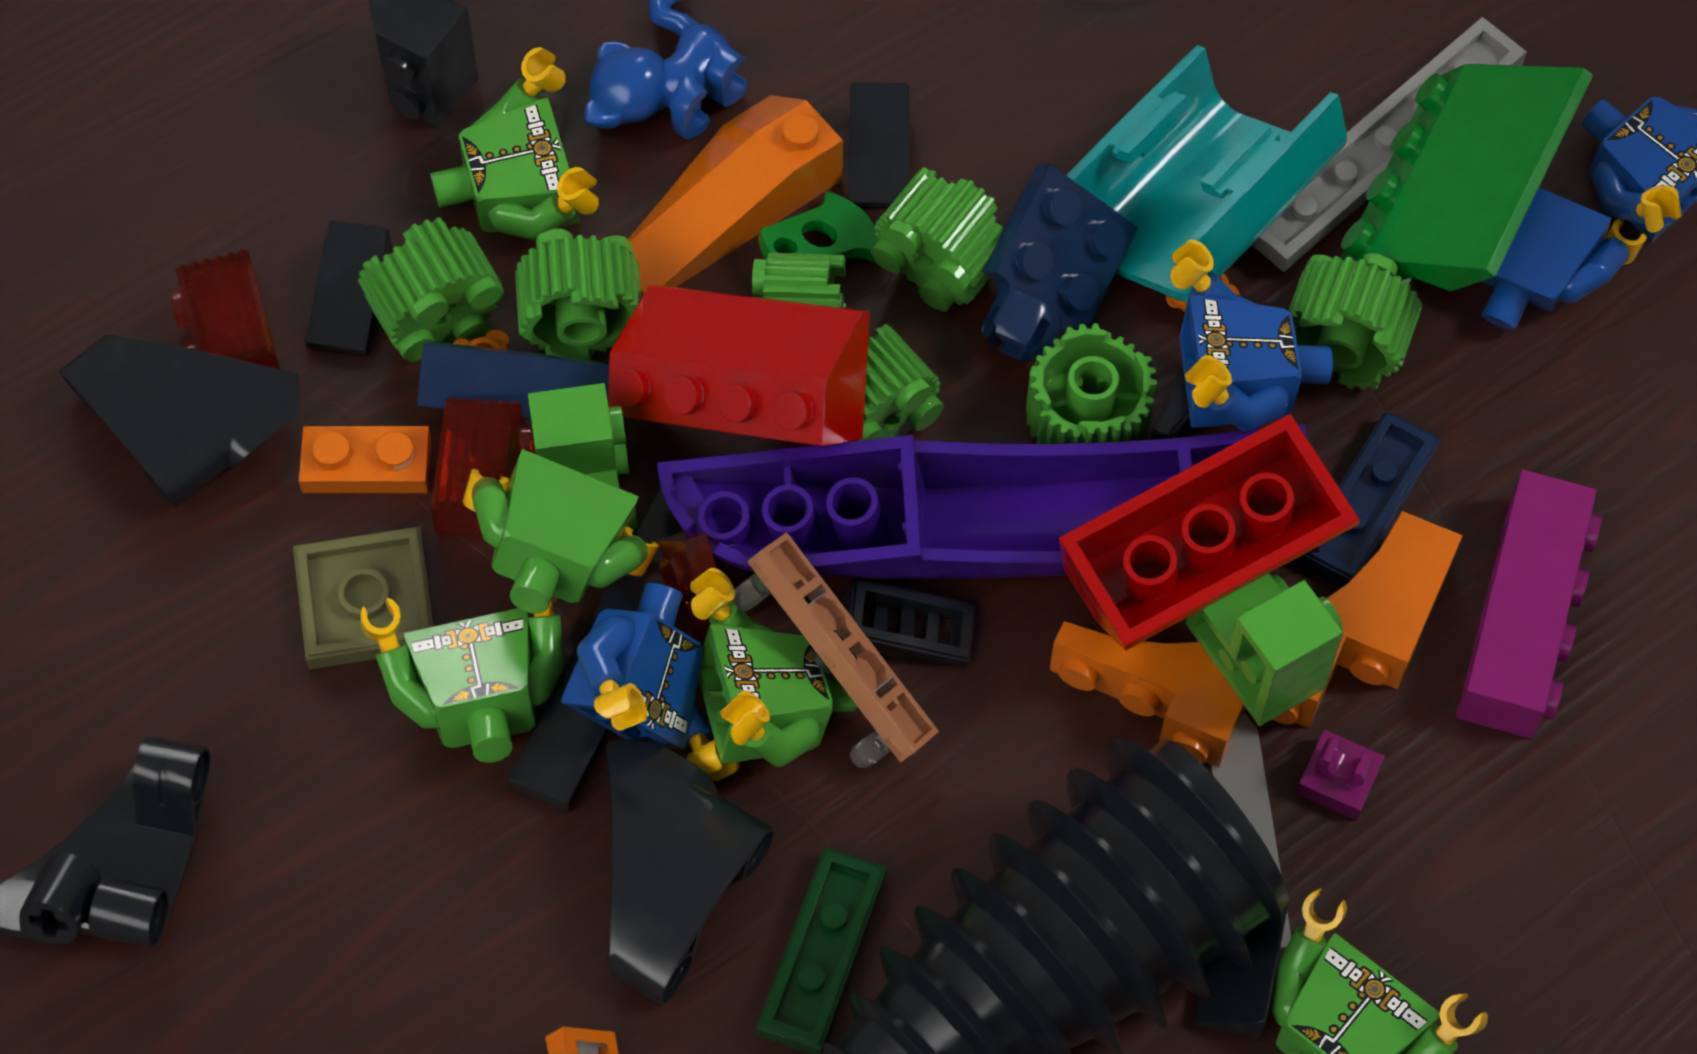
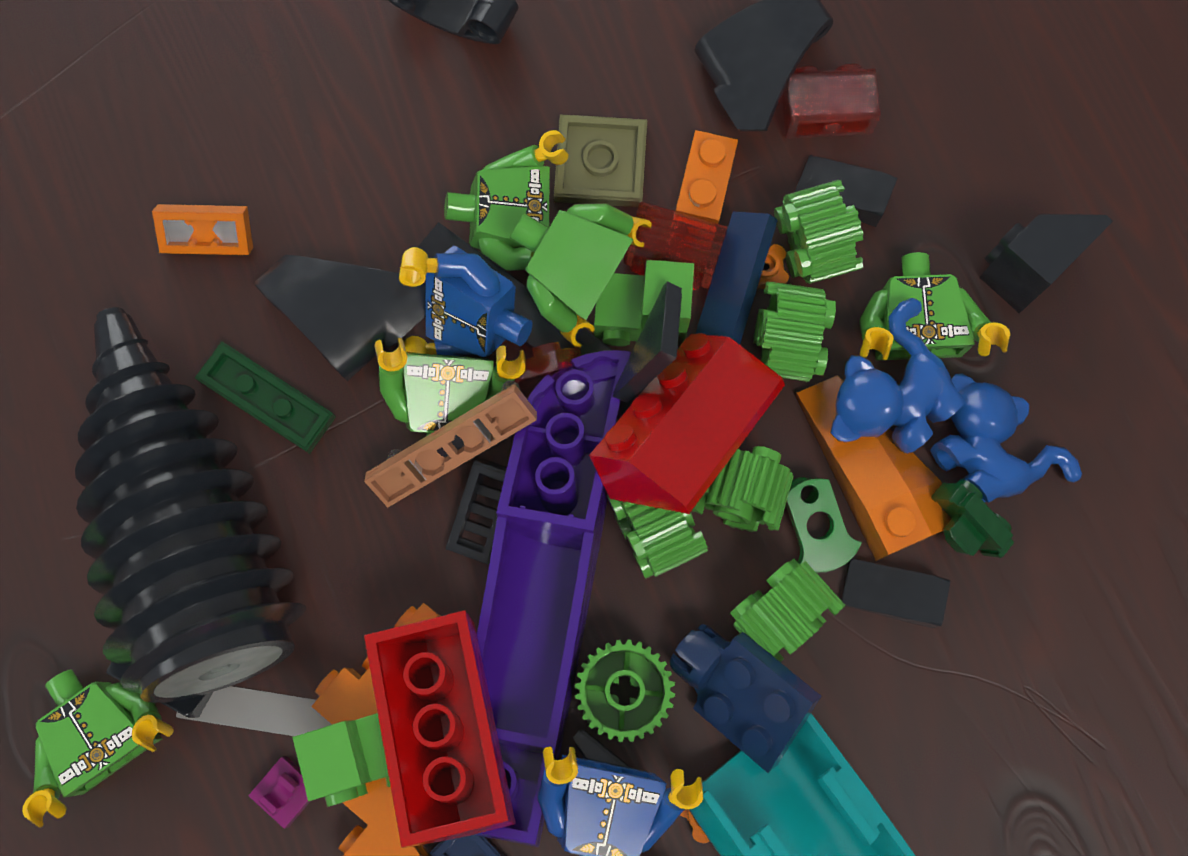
camera: 105 degrees right, 15 degrees up
(652, 165) = (873, 400): none -> blue animal
(655, 404) = (655, 346): none -> black tile
(770, 69) = (972, 521): none -> dark green piece

